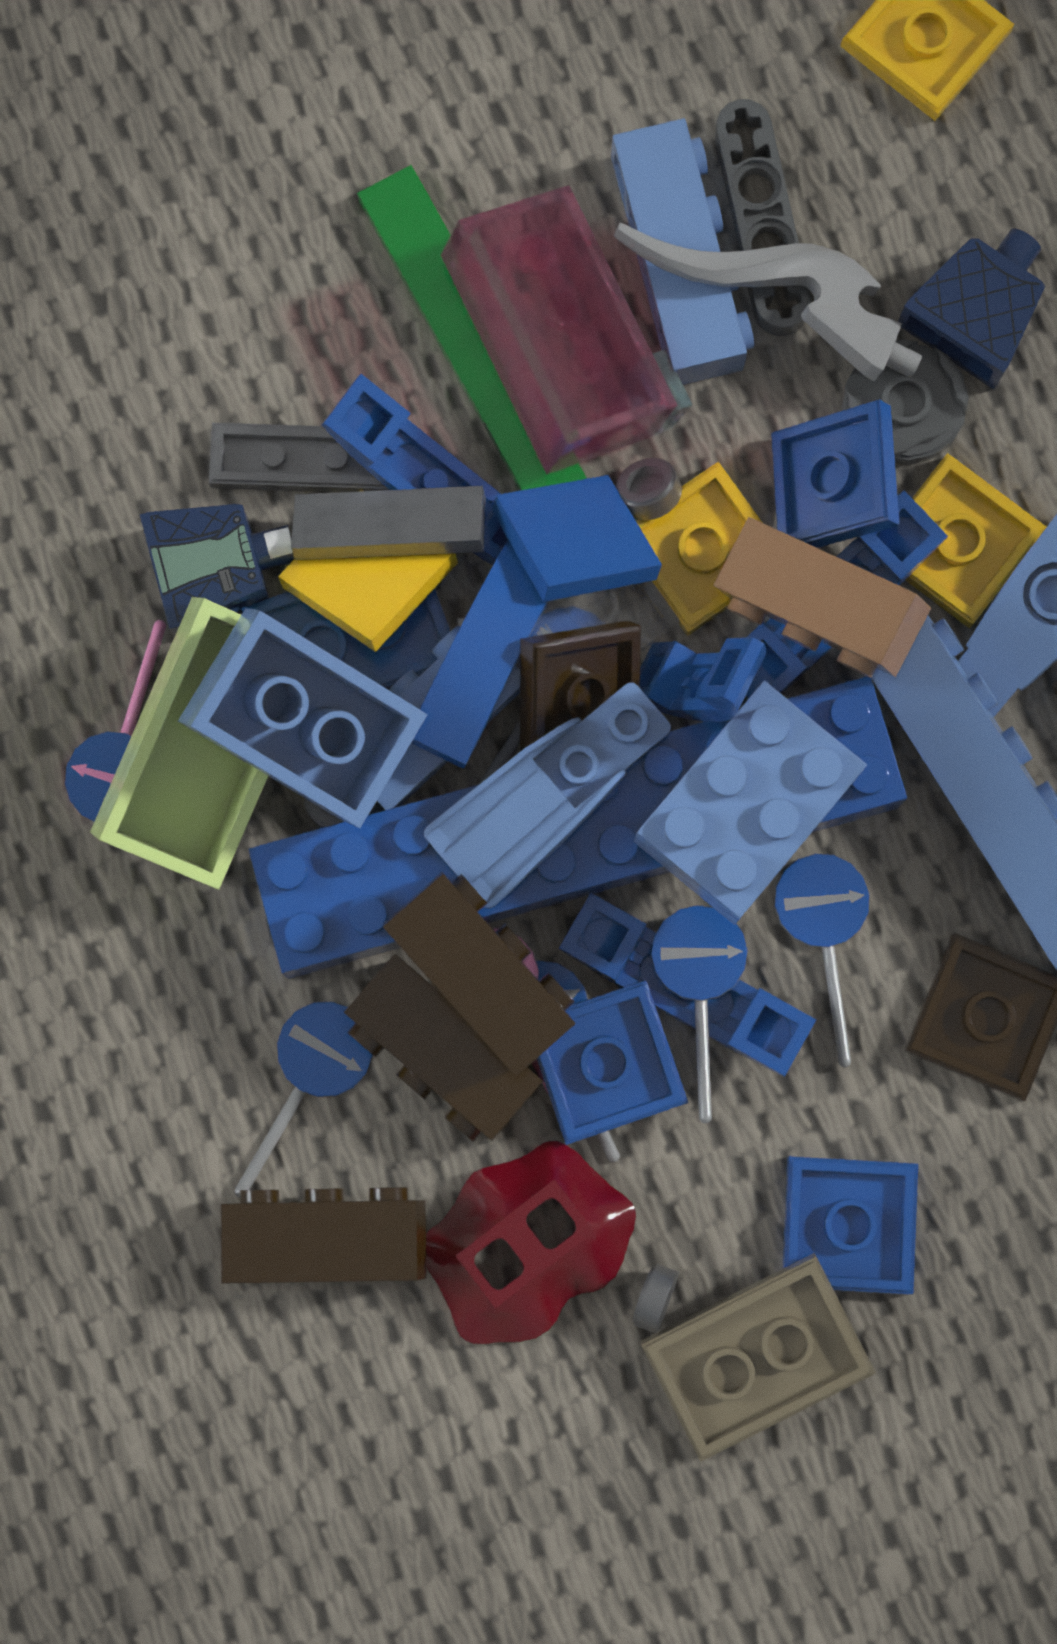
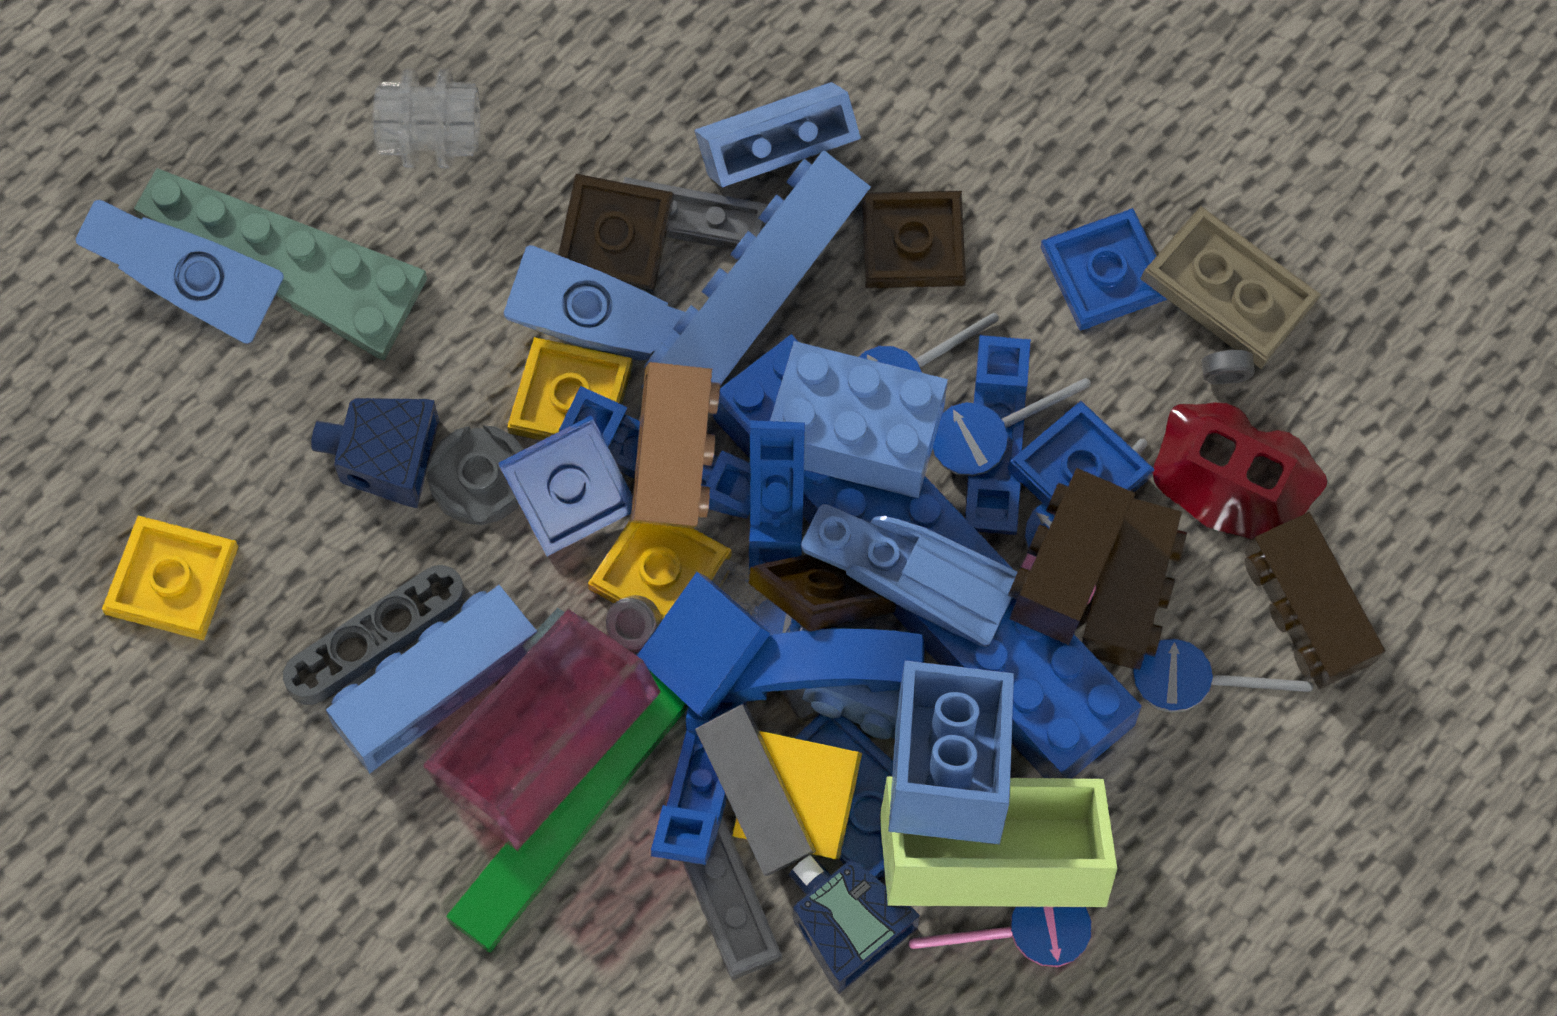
camera: 115 degrees left, 15 degrees down
(830, 275) = (404, 563): light grey piece -> none

